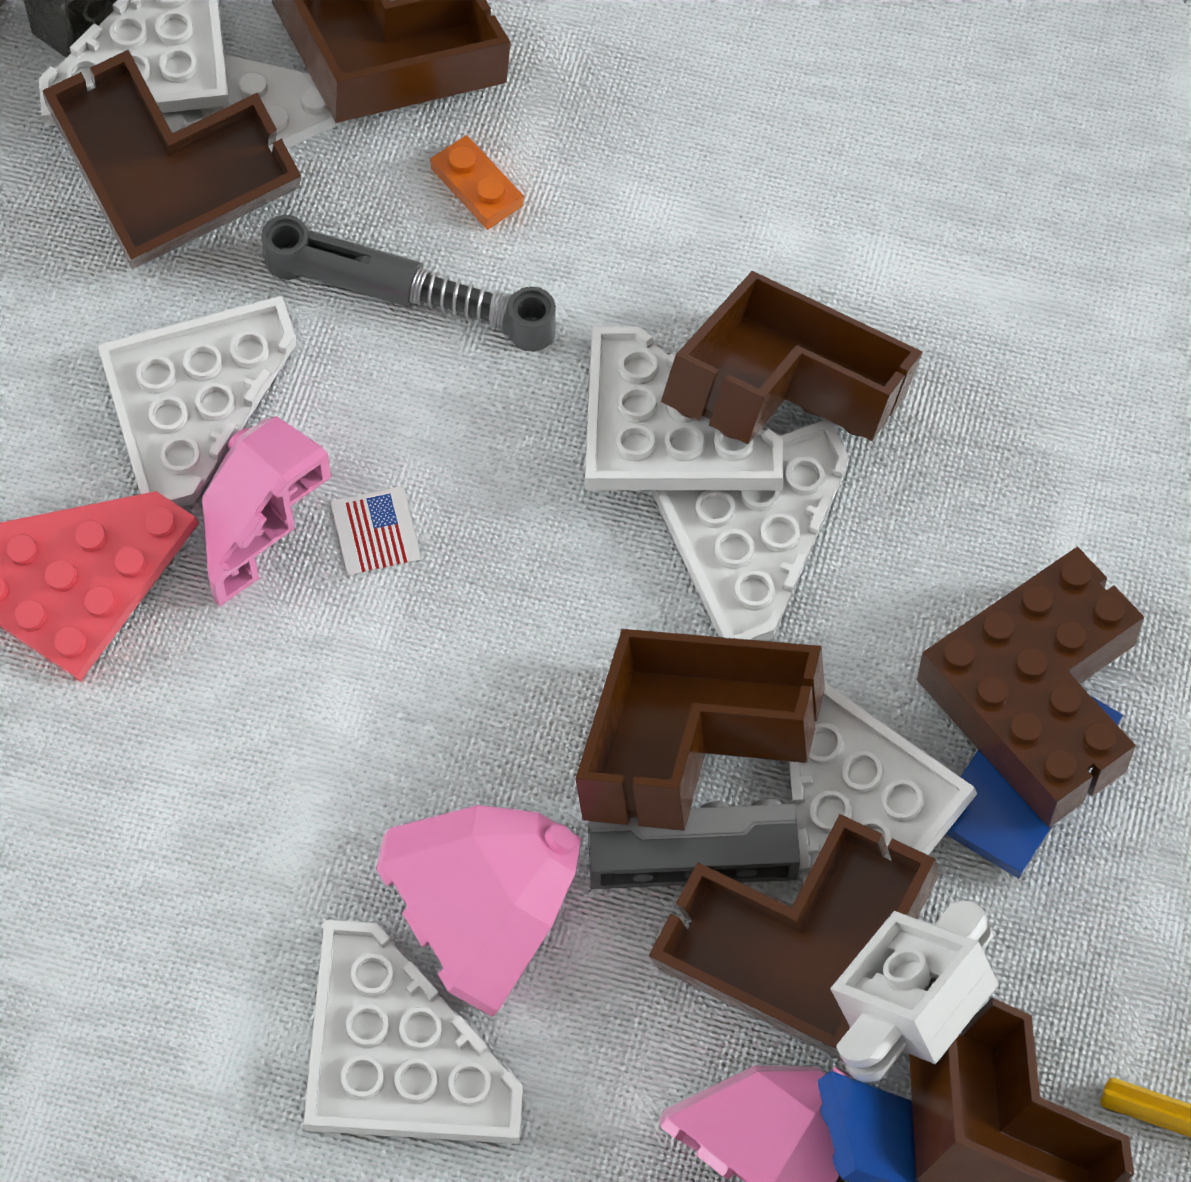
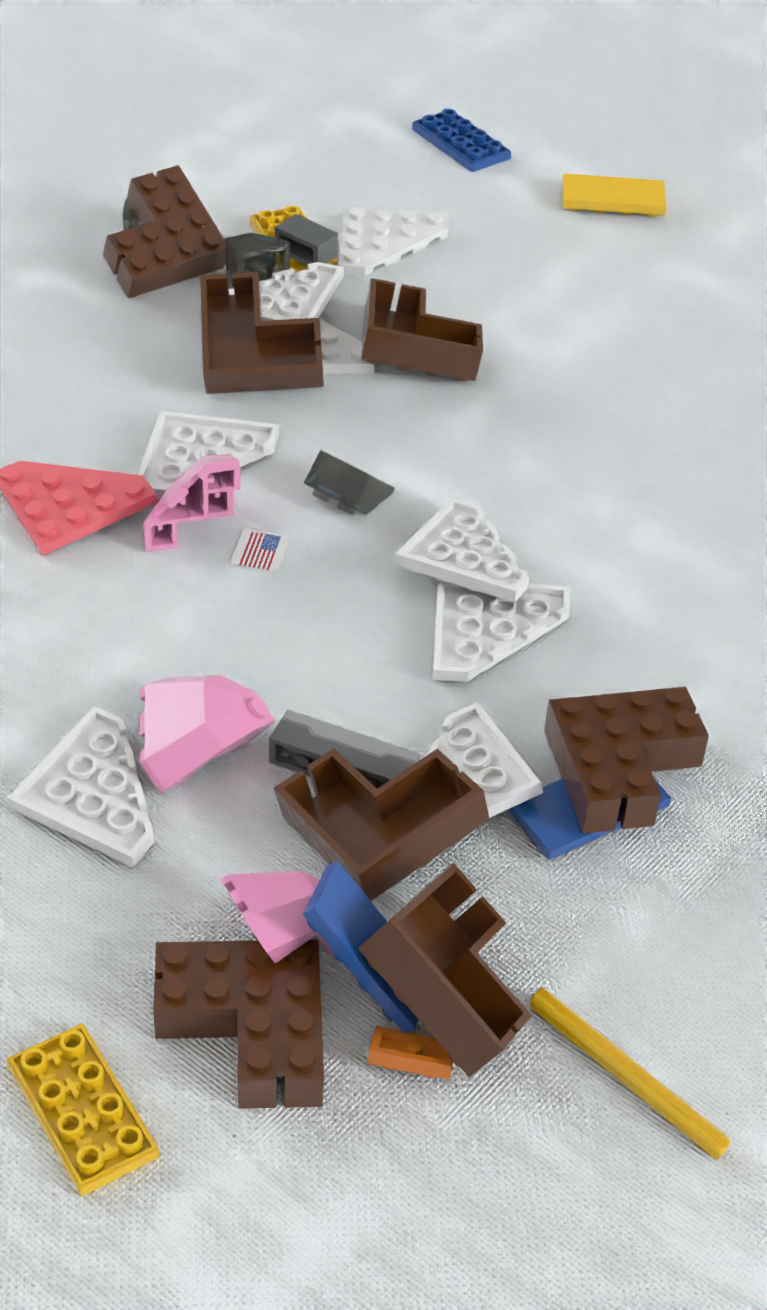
camera: 25 degrees right, 20 degrees down
(403, 281) = (303, 412): dark grey piece -> none
(438, 366) = (346, 484): none -> clear smoke slope
(477, 182) = (429, 419): orange plate -> none
(687, 698) = (380, 673): reddish brown piece -> none
(785, 346) = (557, 535): reddish brown piece -> none
(914, 989) = (423, 846): white brick -> none

